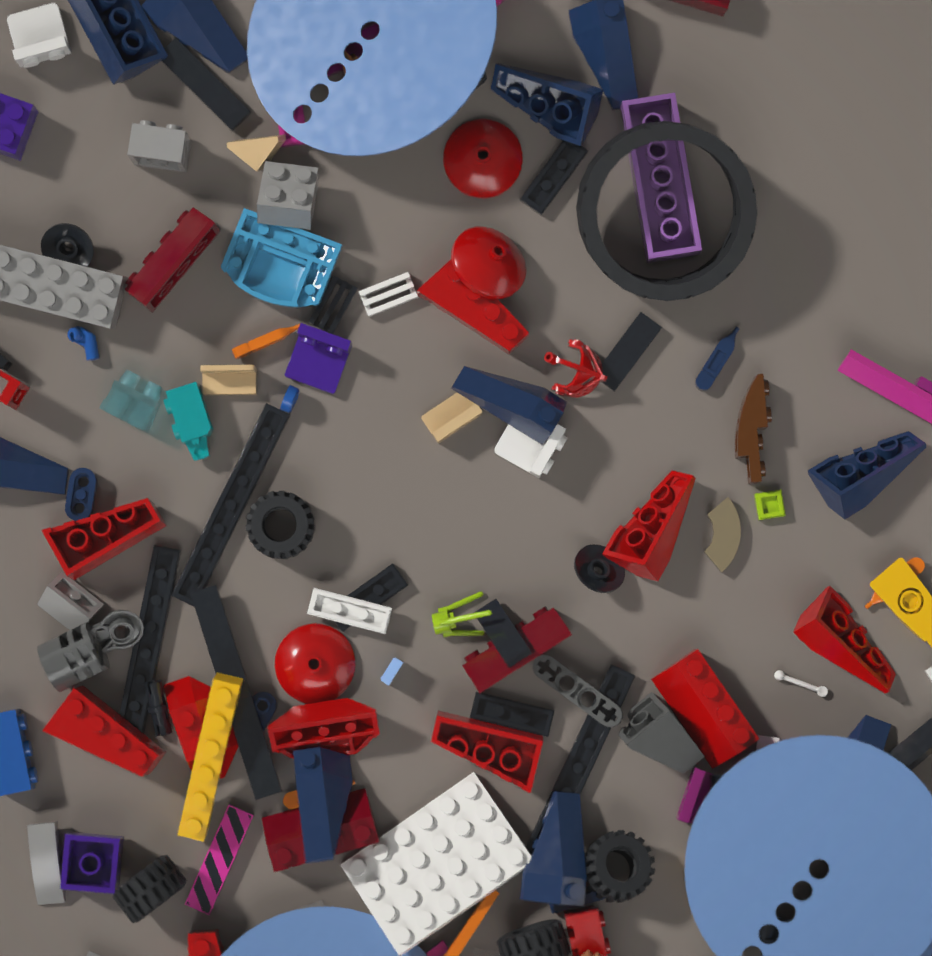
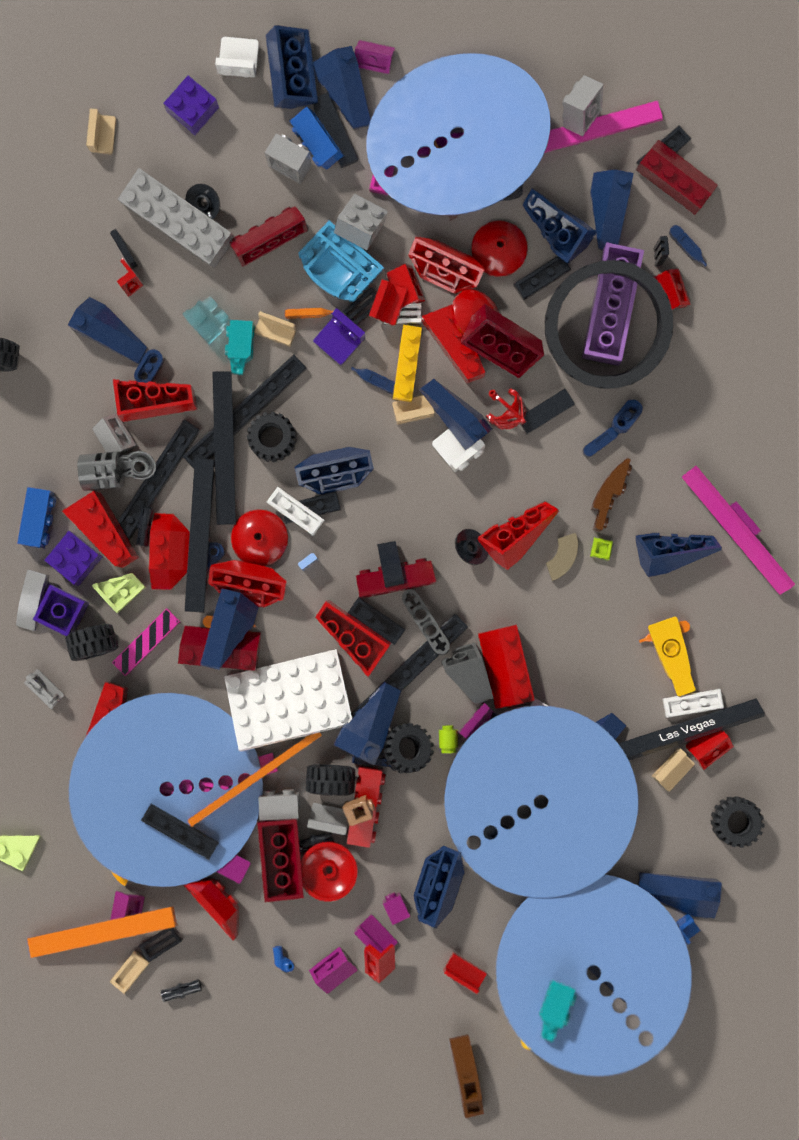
camera: 25 degrees right, 0 degrees up
(81, 786) = (73, 558): none -> dark purple brick
(86, 339) = (192, 267): blue arm -> none
(157, 805) = (120, 590): none -> yellowish green wing
(185, 106) = (316, 138): none -> blue brick
(210, 756) = (159, 578): yellow arch -> none
(223, 563) = (224, 447): none -> black tile
(257, 150) = (352, 185): tan slope -> none
(290, 399) = (310, 357): blue tile -> none
(366, 288) = (388, 302): none -> red panel
(378, 256) = (406, 278): none -> red panel
(380, 536) = (334, 470): none -> dark blue wedge
(389, 395) = (375, 379): none -> dark blue piece
(420, 358) = (407, 363): none -> yellow plate
(421, 209) = (445, 265): none -> red wedge
(445, 621) = (357, 542): lime plant -> none
(536, 284) = (502, 341): none -> dark red slope
(666, 833) = (448, 739): none -> lime brick
(697, 77) = (662, 250): none -> black tile
(726, 59) = (686, 244): none -> dark blue piece
(730, 126) = (674, 288): none -> red panel
(736, 319) = (626, 417): none -> dark blue plate
(822, 691) = (588, 685): white hinge -> none
(835, 636) = (611, 651): red wedge -> none

